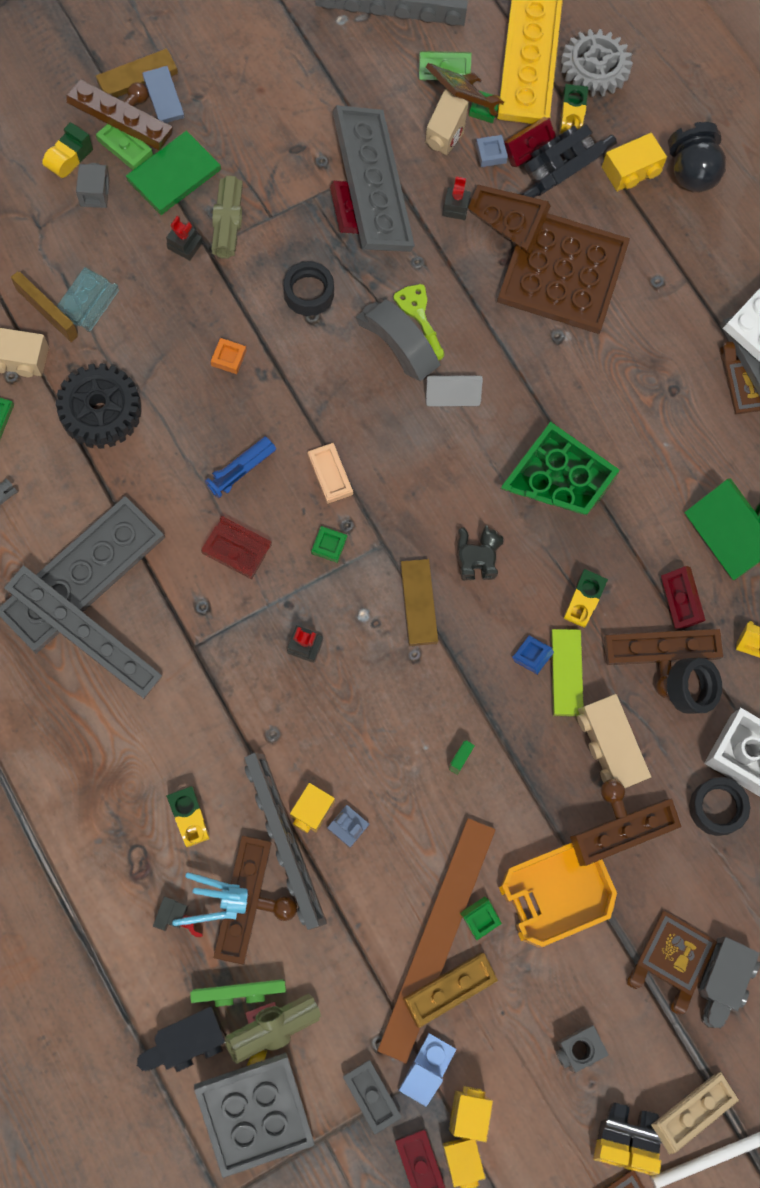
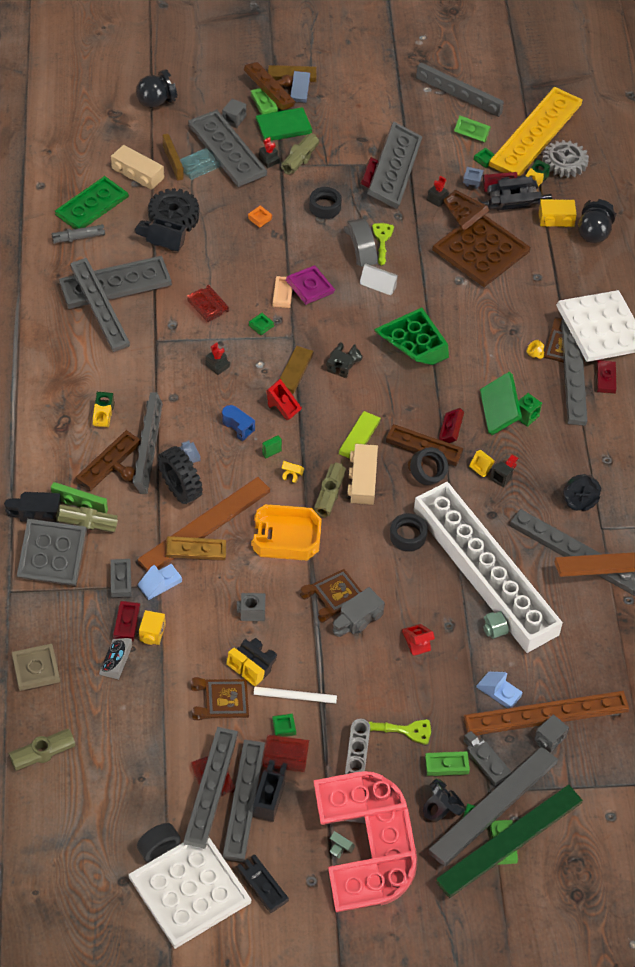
camera: 30 degrees right, 20 degrees down
(68, 151) = (225, 94): leg -> none
(104, 456) = (162, 233): none -> black hinge
(115, 253) = (227, 148): none -> dark grey plate
(170, 911) = (67, 451): pearl dark grey piece -> none
(232, 899) = (101, 450): medium azure plant -> none
(239, 467) = (238, 267): blue piece -> none
(311, 809) = (172, 434): yellow brick -> none
(363, 445) = (310, 284): none -> magenta plate
(371, 889) = (180, 475): none -> black wheel
(391, 735) = (239, 421): none -> blue leg
(438, 671) = (281, 397): none -> red slope
(447, 123) = (454, 153): tan slope -> none
(462, 87) = (473, 138): reddish brown flag -> none
(470, 1114) = (169, 601): yellow brick -> none
(480, 918) = (234, 524): green tile -> none
(510, 781) = (293, 469): none -> yellow tile
(533, 654) = (344, 418): blue tile -> none
(576, 771) = (330, 490): none -> olive piece
(585, 598) = (392, 403): leg -> none
(626, 829) = (342, 513): reddish brown plate -> none
(694, 1113) = (298, 662): tan tile -> none
(724, 409) = (535, 349): none -> yellow tile

